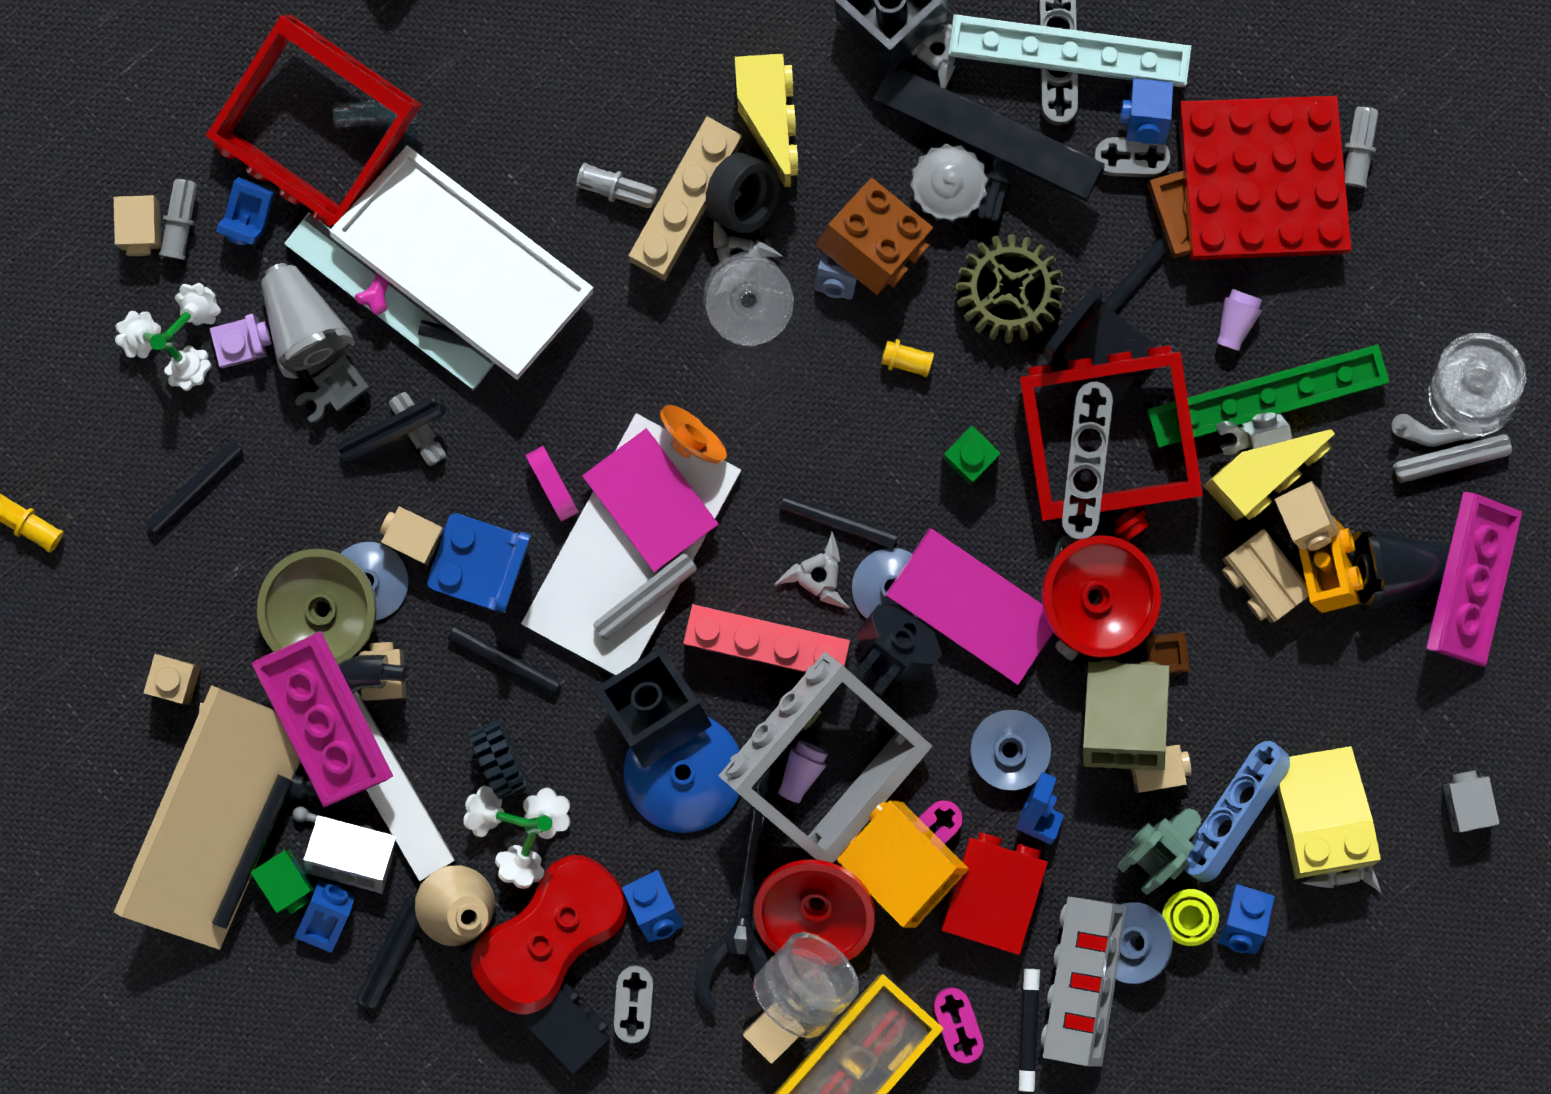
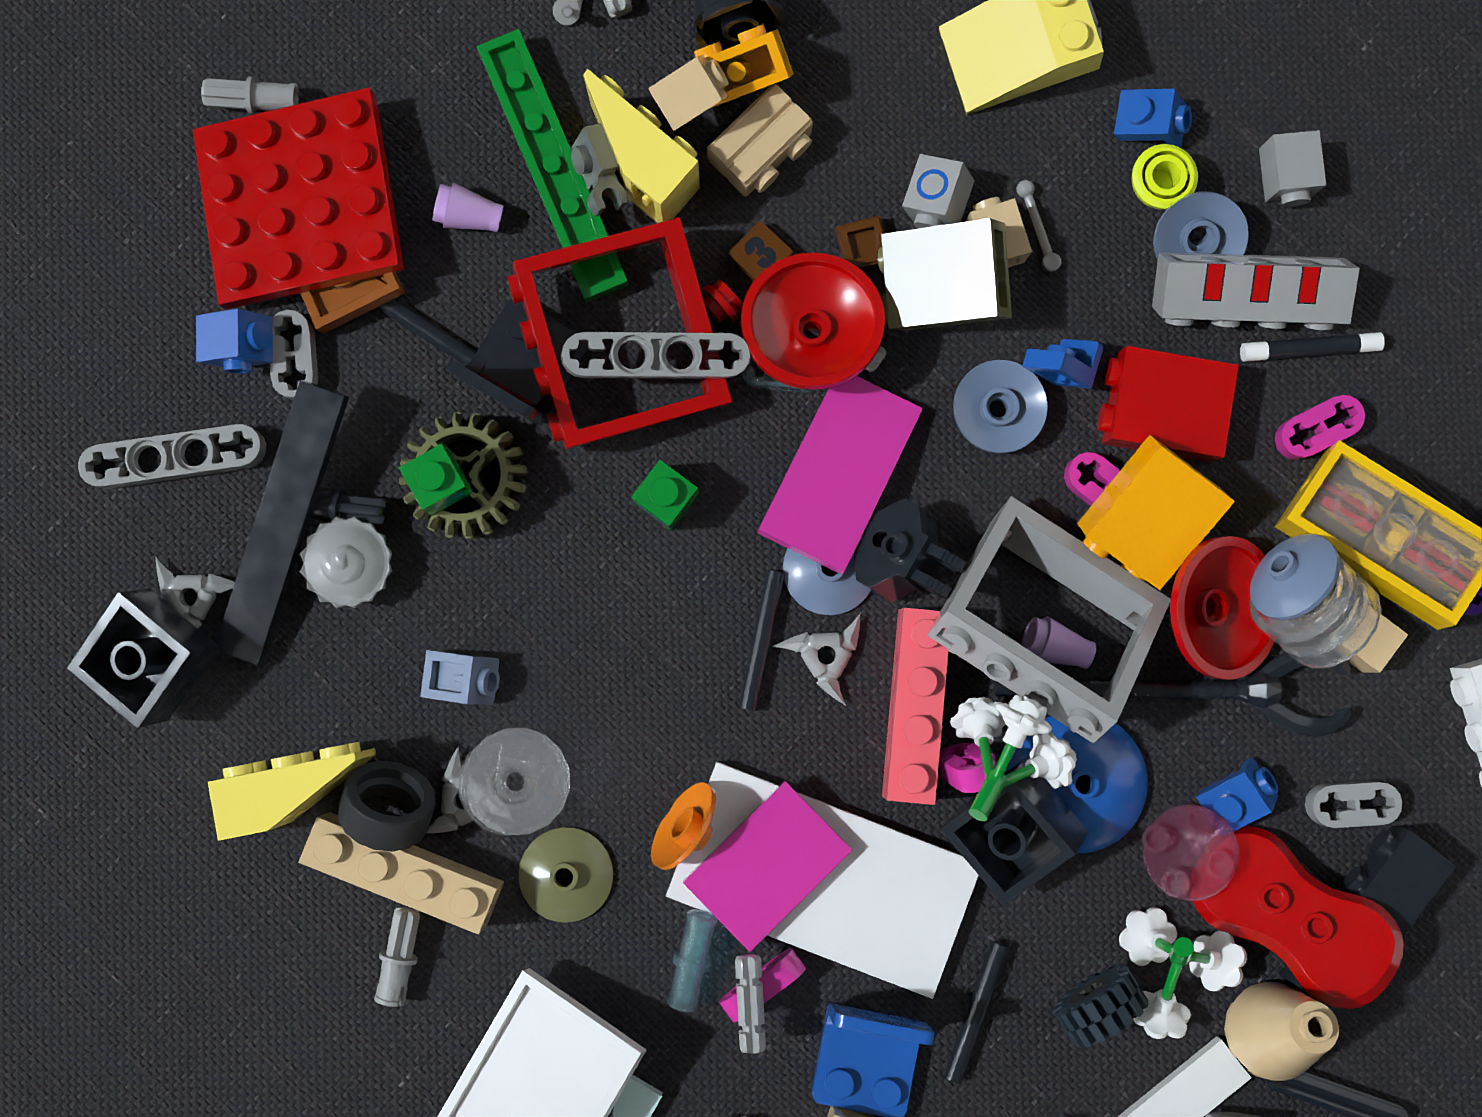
camera: 105 degrees left, 0 degrees up
(542, 469) = (750, 1003): none -> light grey axle
(580, 428) = (692, 960): none -> clear light blue pin
(612, 856) = (1190, 852): none -> clear pink dish
(644, 597) = (883, 857): light grey axle -> none
(668, 353) = (580, 854): none -> olive dish
(710, 676) = (963, 767): none -> dark pink beam
(745, 708) = (1024, 717): none -> white plant
(832, 968) = (1295, 577): none -> sand blue dish
(875, 237) = (421, 640): dark orange brick -> none
(907, 358) = (560, 585): yellow pin -> none
(1006, 266) = (436, 479): none -> green brick
(1068, 50) = (172, 443): light aqua tile -> none
(1163, 848) = (1093, 217): sand green hinge -> none
(1171, 564) = (758, 251): none -> reddish brown tile
(1185, 1033) = (1292, 167): none -> light grey brick
(1197, 802) = (1051, 260): none -> light grey hinge
(1199, 721) = (937, 192): none -> light grey brick
(1231, 809) = (1037, 135): medium blue beam -> none

